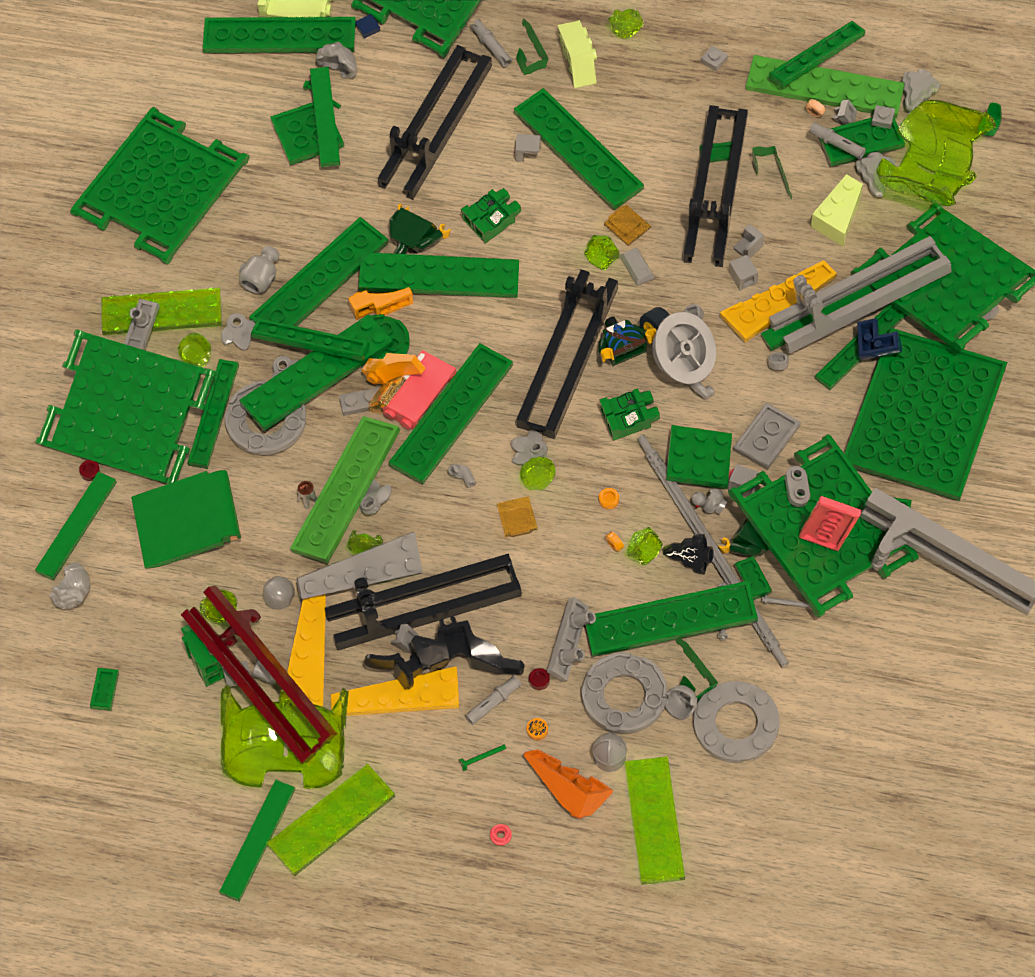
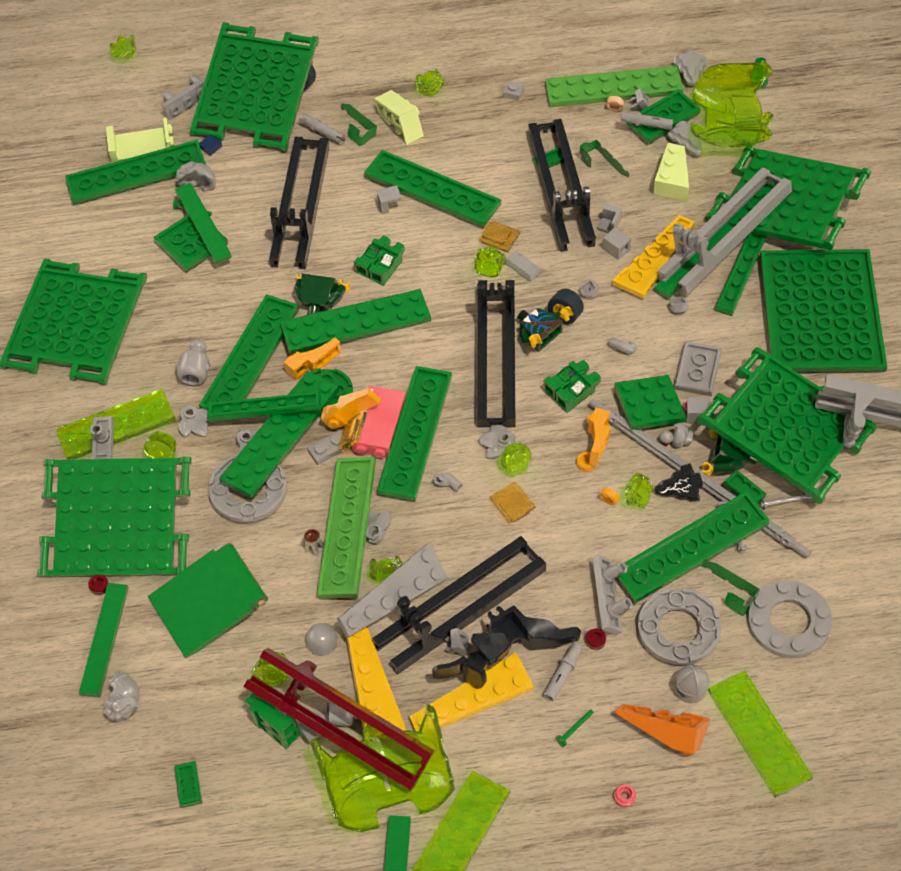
camera: 20 degrees left, 5 degrees down
(213, 414) = (198, 501): green tile -> none
(537, 729) = (614, 685): light orange tile -> none
(635, 464) = (600, 433): none -> light orange slope
(681, 702) = (735, 617): light grey hair -> none
(684, 348) = (598, 316): light grey piece -> none
(797, 484) = (752, 394): light grey plate -> none
(817, 54) = (597, 63): green tile -> none
(829, 523) = (805, 414): coral tile -> none
(873, 344) = (753, 266): dark blue brick -> none
(883, 116) = (674, 93): light grey plate -> none

